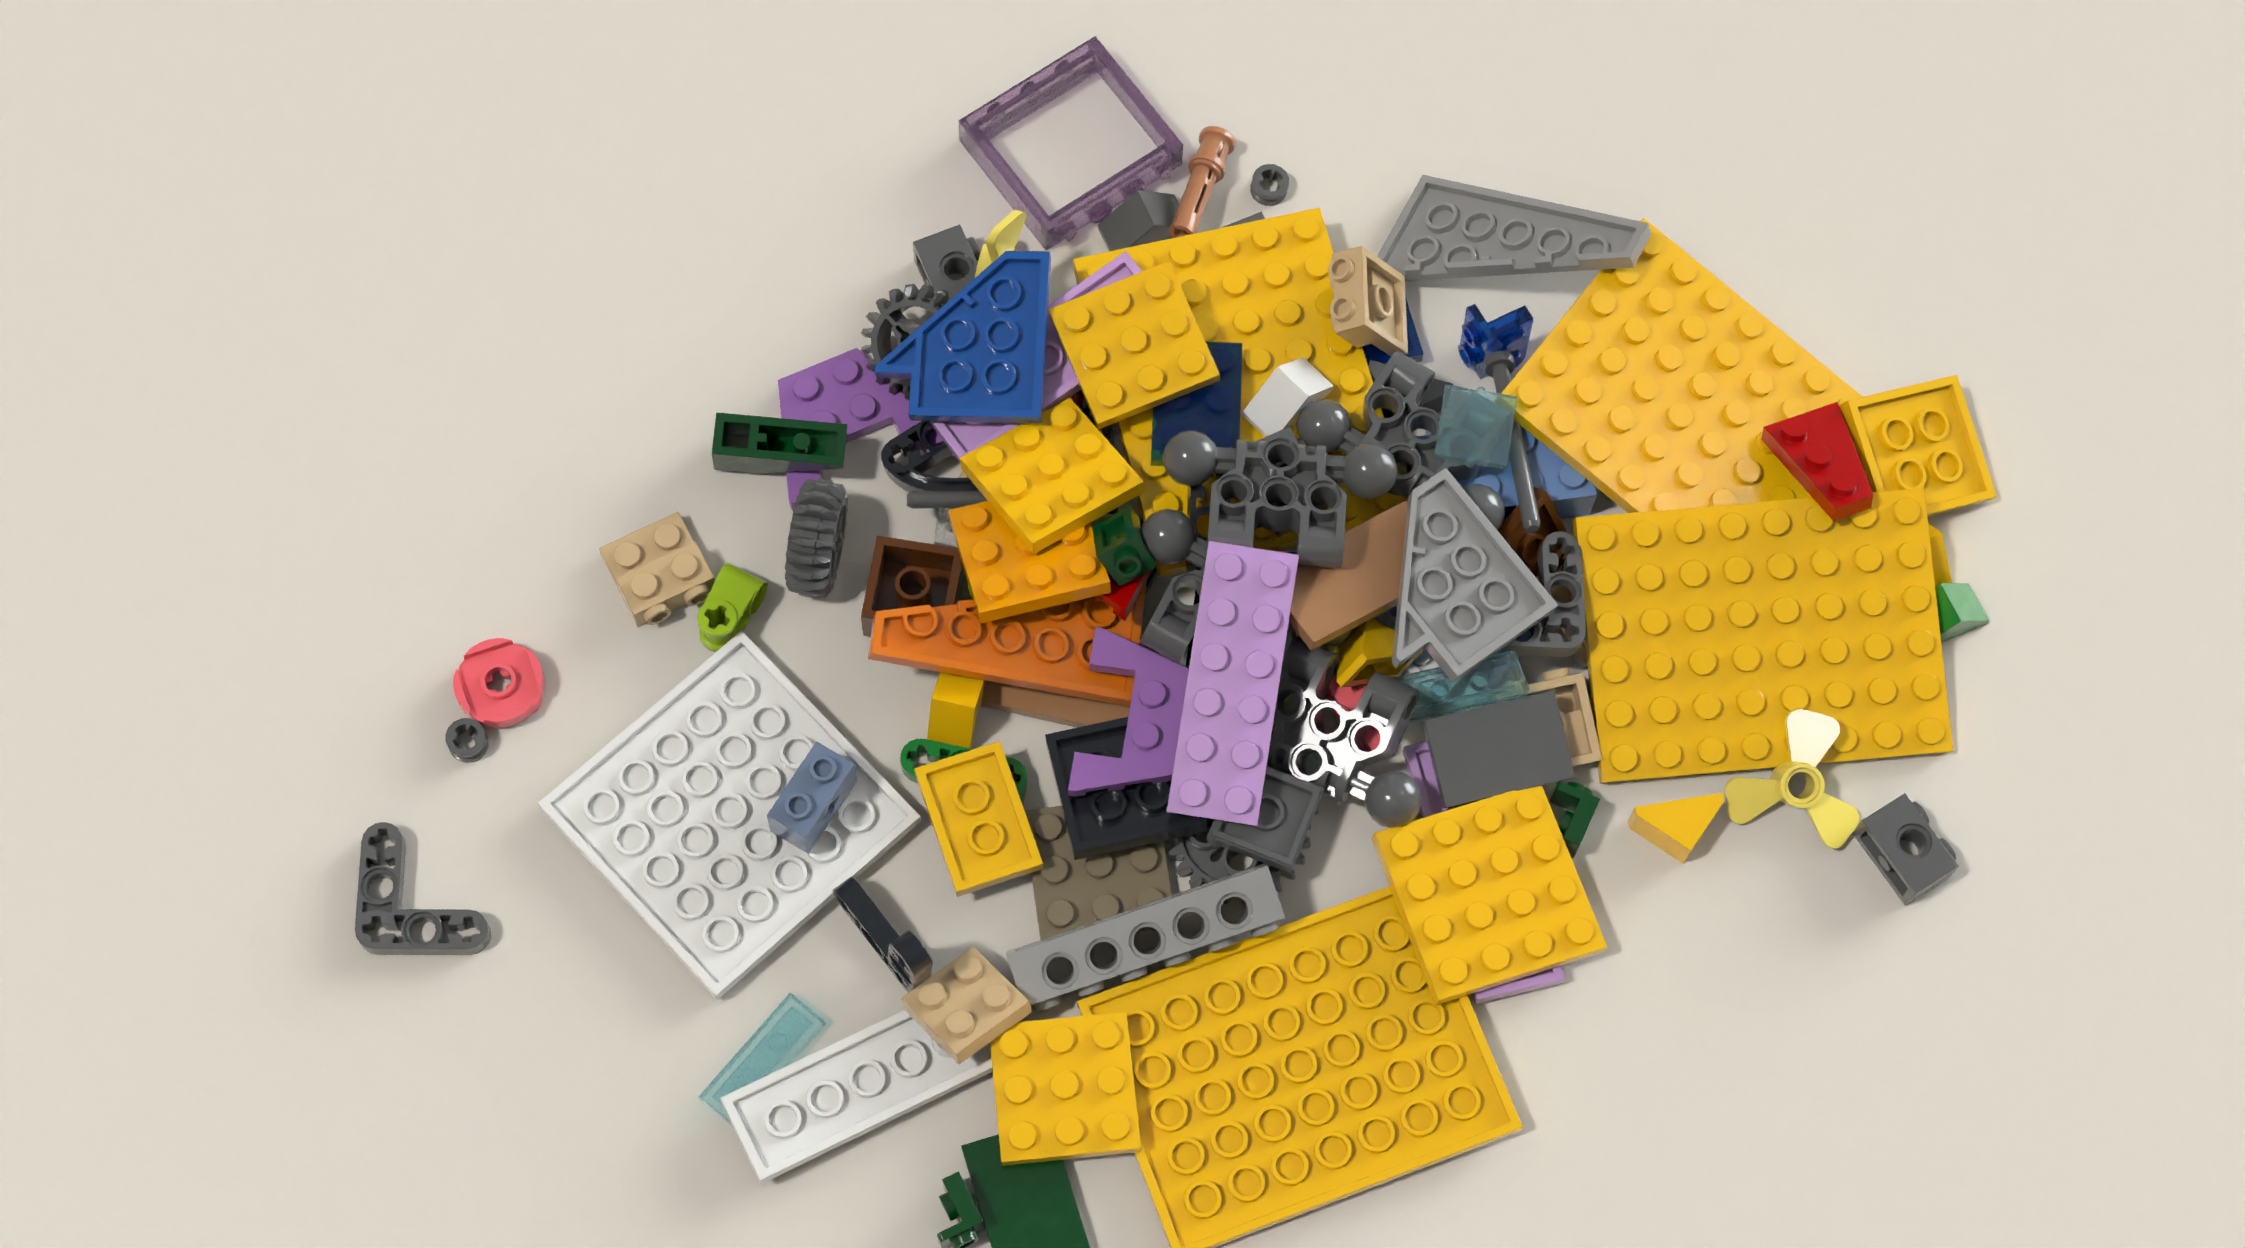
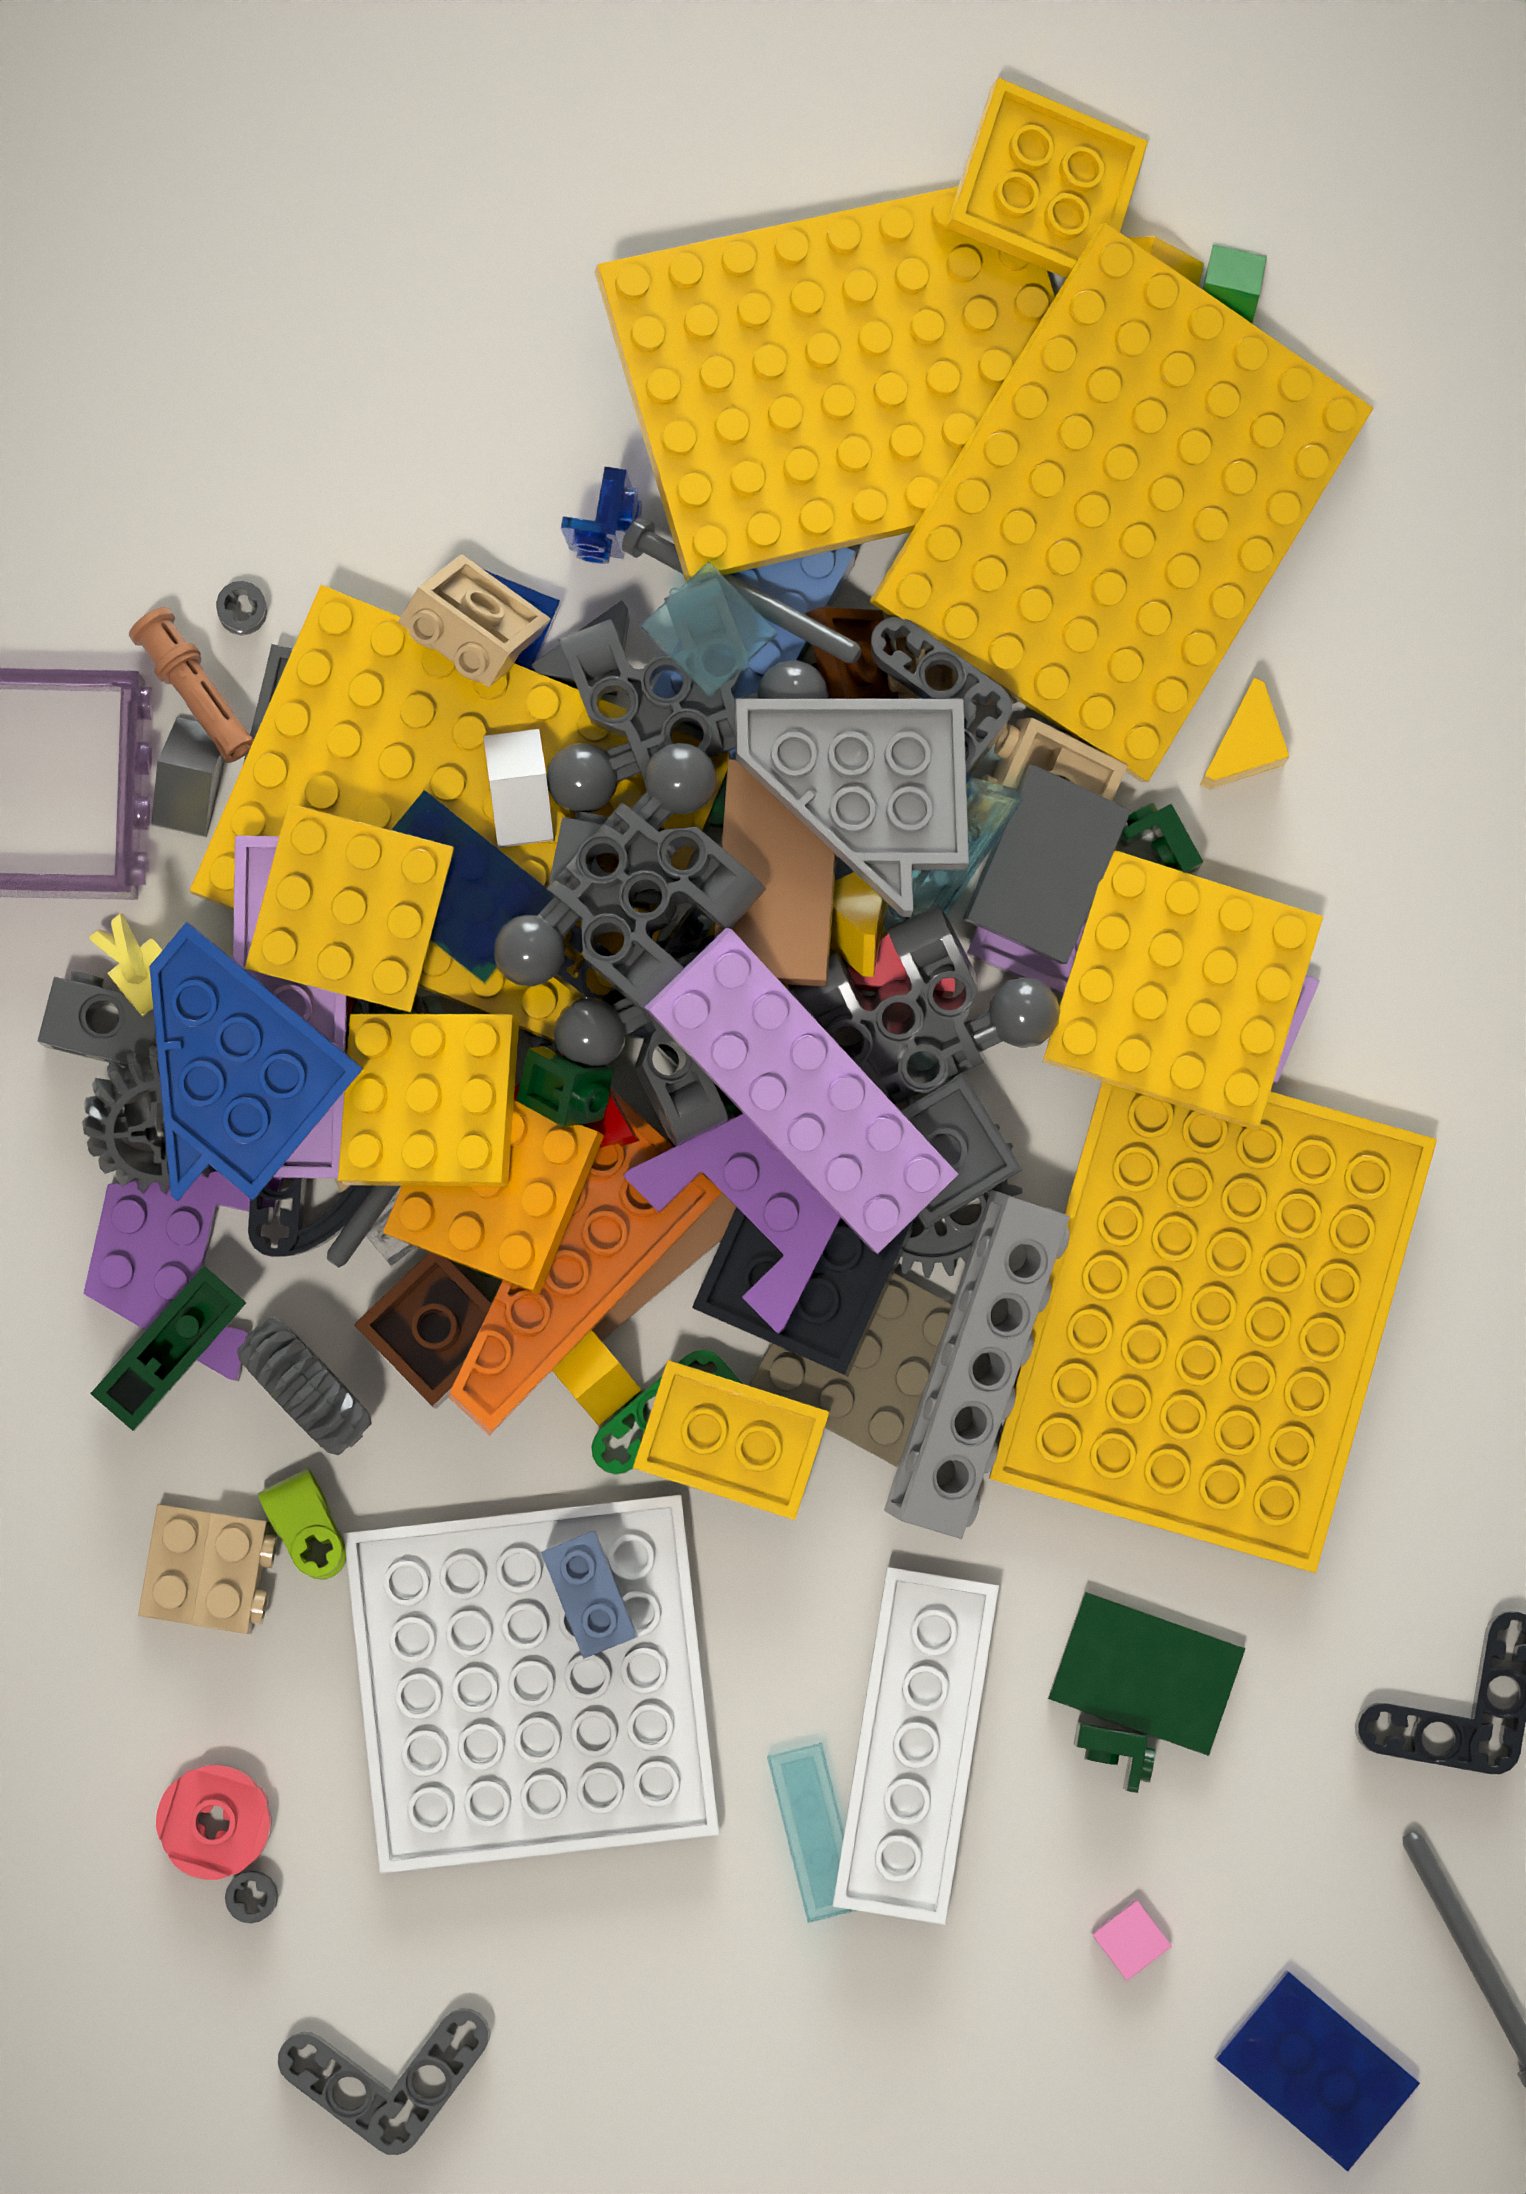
camera: 50 degrees left, 15 degrees up
(901, 954) = (783, 1624): black beam -> none
(966, 1005) = (919, 1595): tan plate -> none
(1065, 1089) = (1071, 1558): yellow plate -> none
(1482, 232) = (477, 438): light grey wing -> none
(1808, 740) = (1266, 548): light yellow piece -> none
(1822, 459) = (997, 298): red wing -> none
(1906, 873) = (1408, 552): dark grey brick -> none

